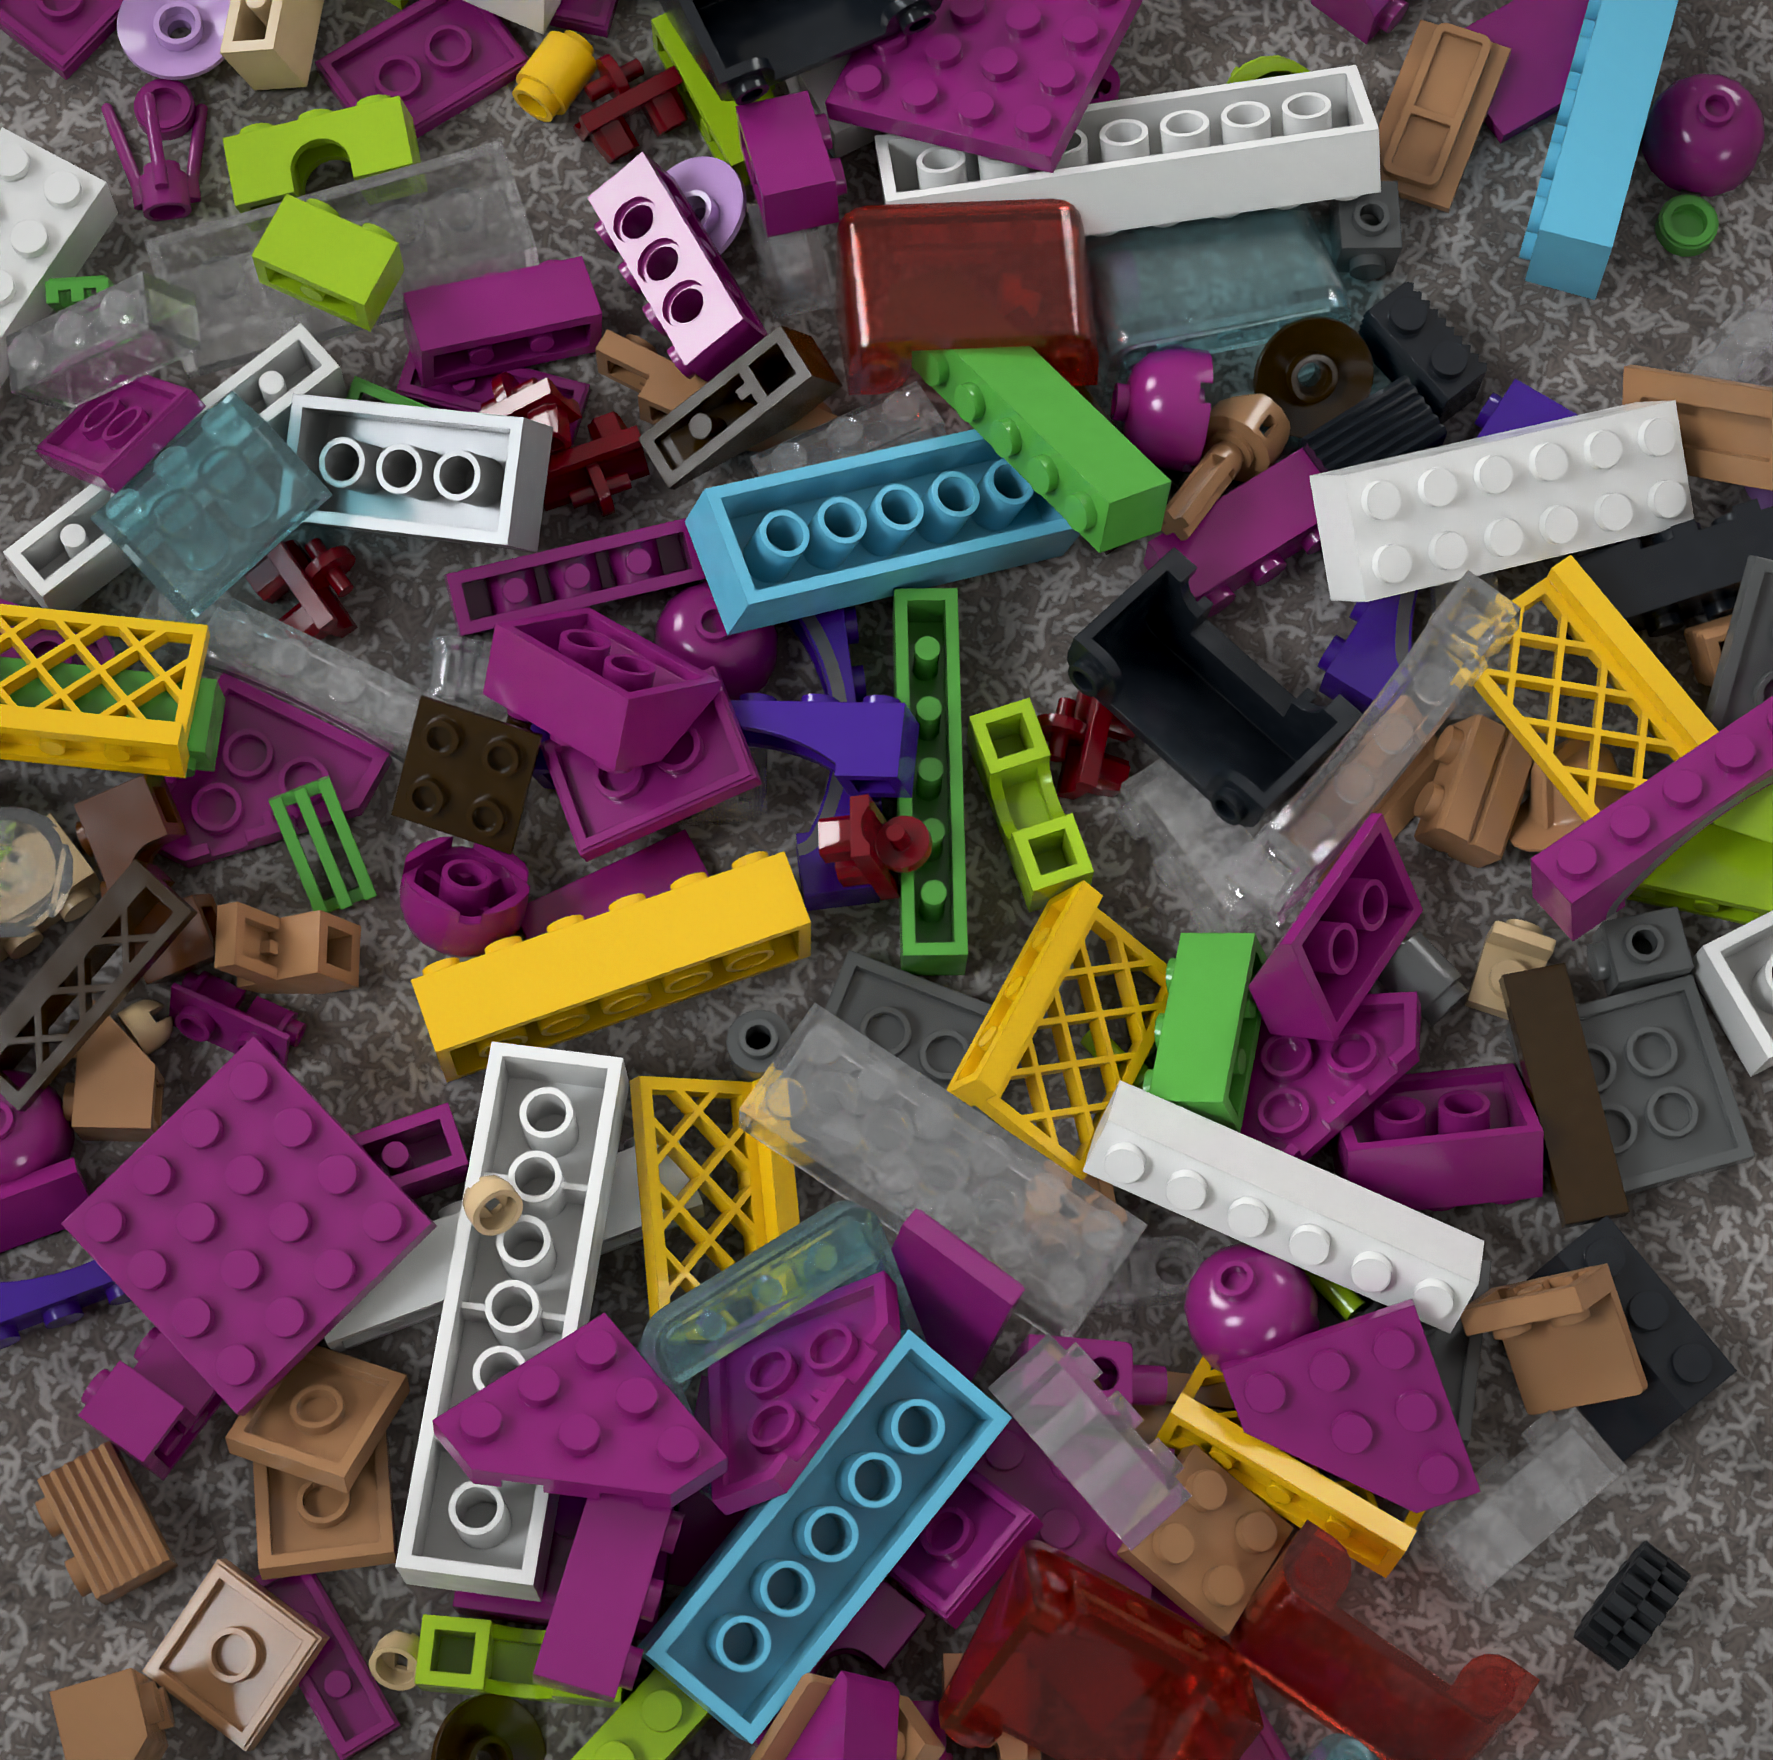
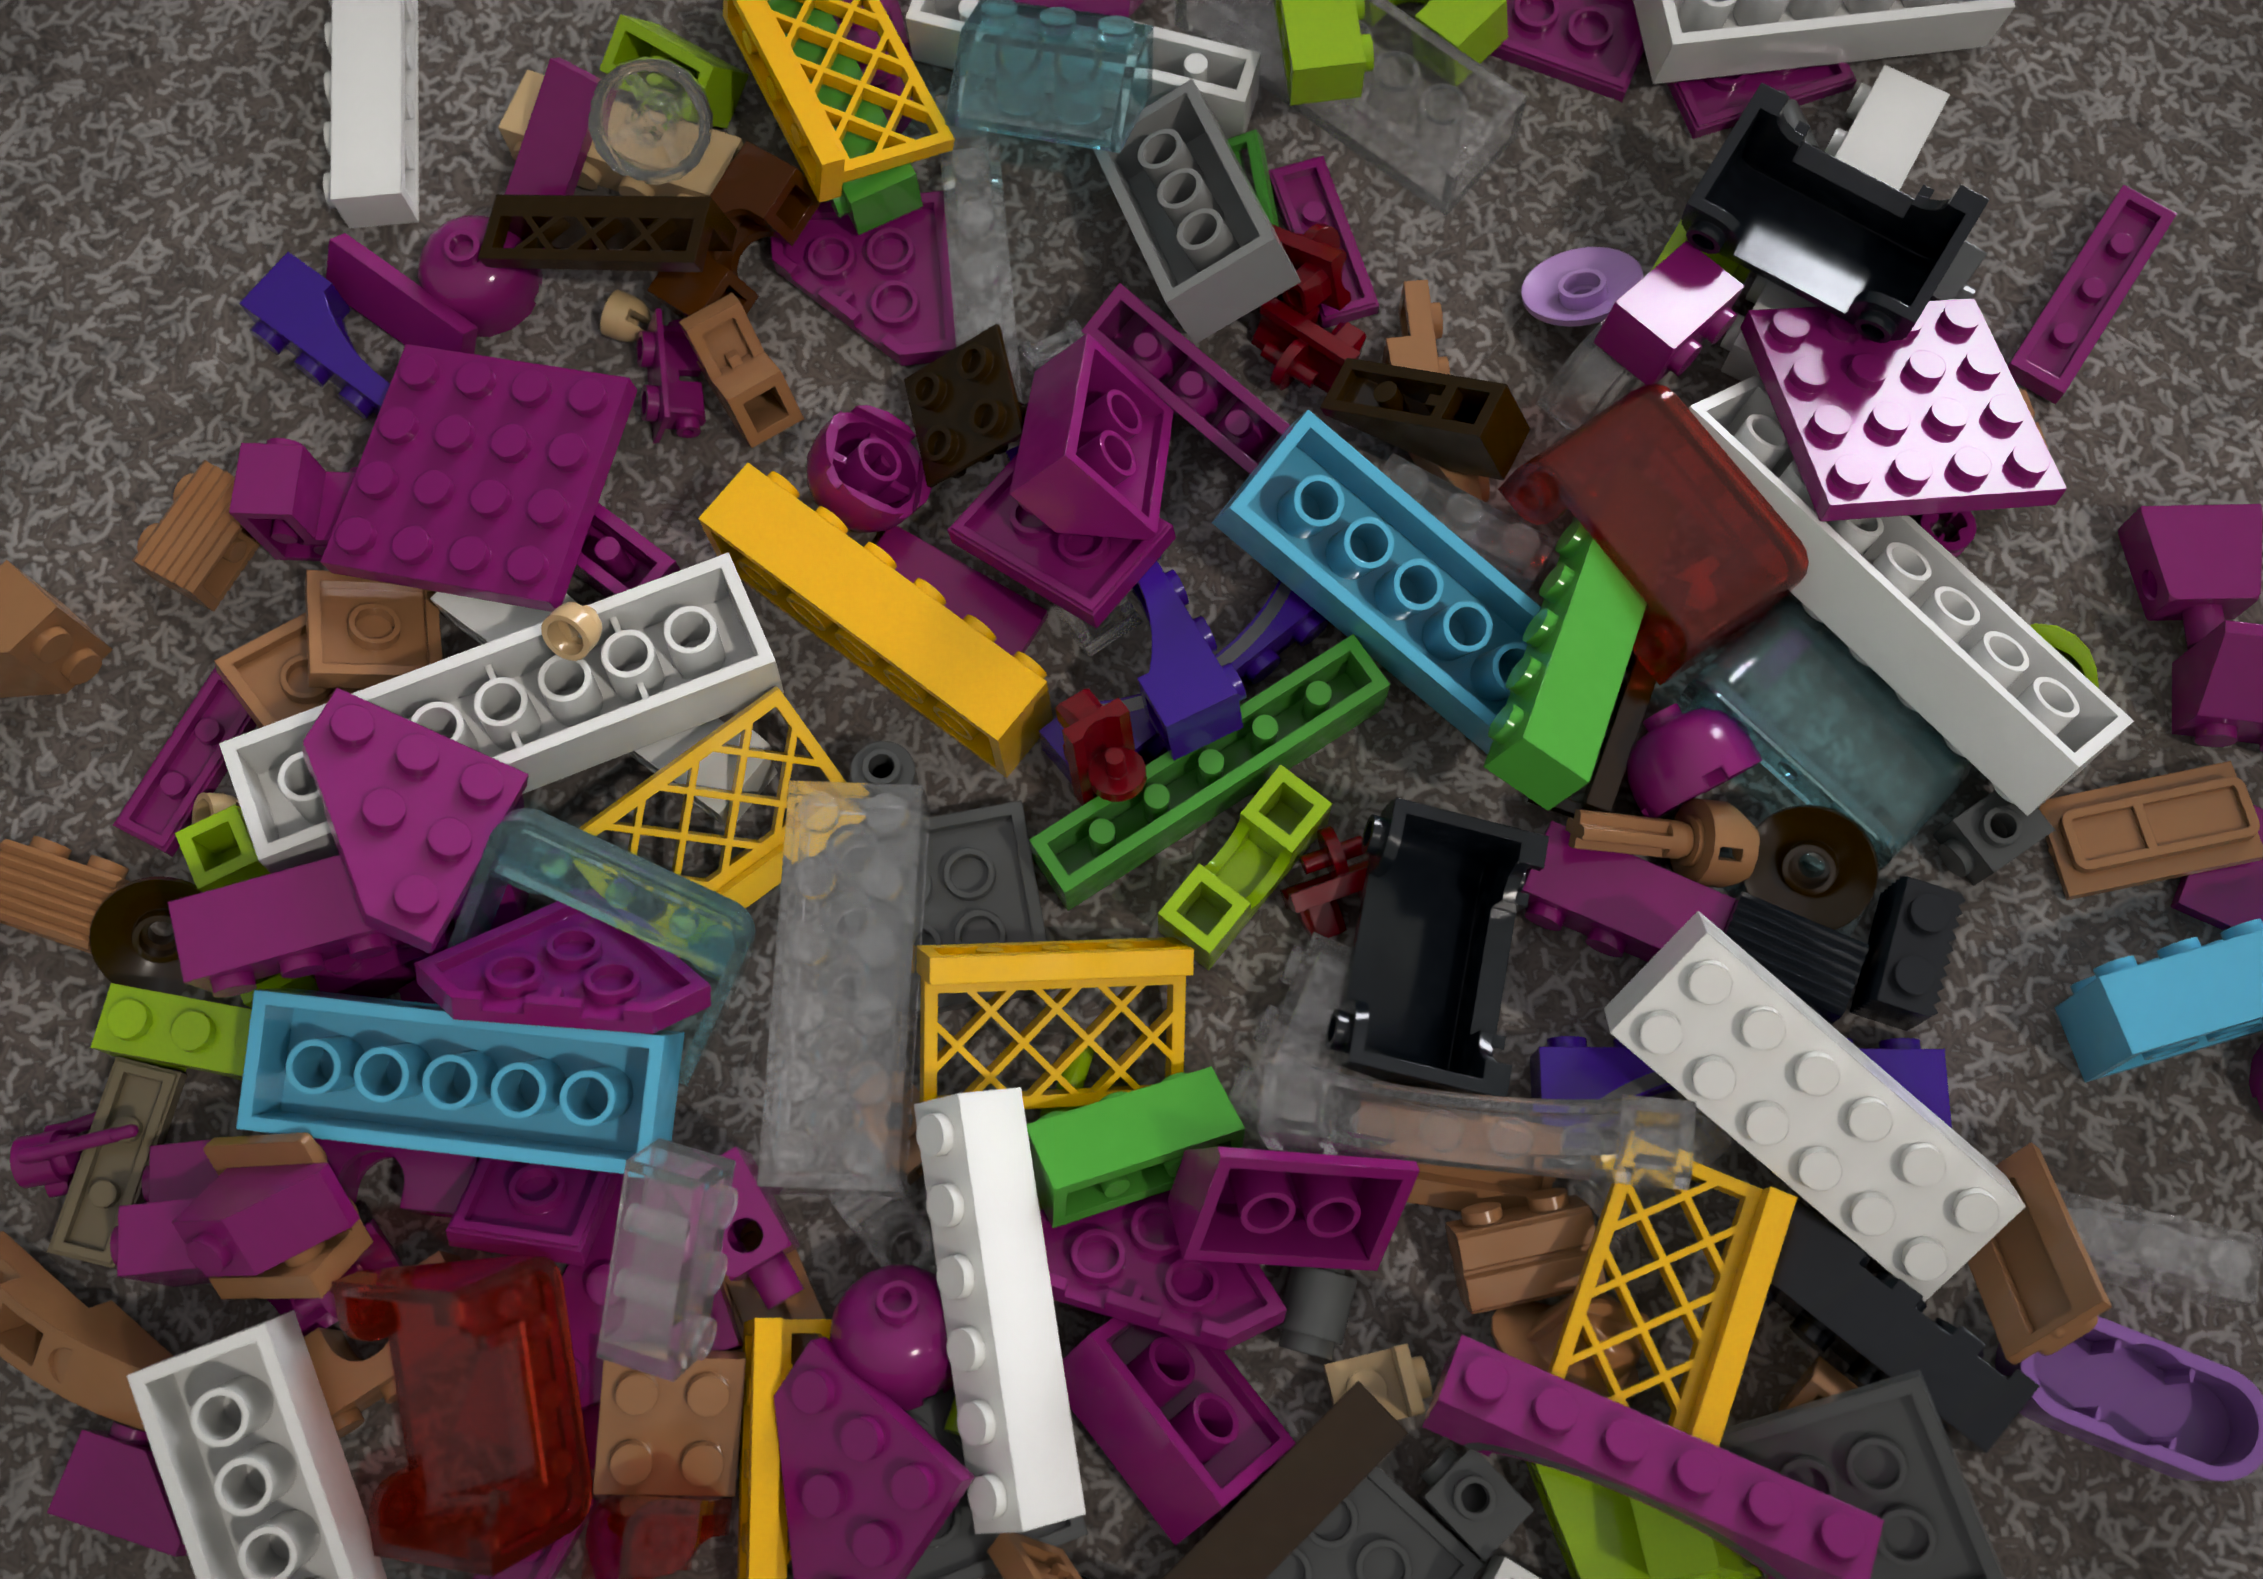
camera: 65 degrees right, 0 degrees up
(115, 1088) = (562, 318): medium nougat slope -> none
(235, 1654) = (153, 693): medium nougat plate -> none
(291, 569) = (1062, 208): dark red hips -> none
(343, 898) = (829, 337): bright green tile -> none
(502, 321) = (1378, 201): magenta brick -> none
(554, 75) = (1625, 114): yellow brick -> none
(607, 122) = (1663, 194): dark red hips -> none
(675, 268) = (1518, 293): brick -> none
(696, 634) = (1201, 552): magenta cylinder -> none
(954, 1292) = (744, 1055): magenta tile -> none
(1686, 225) = (2223, 1123): bright green tile -> none

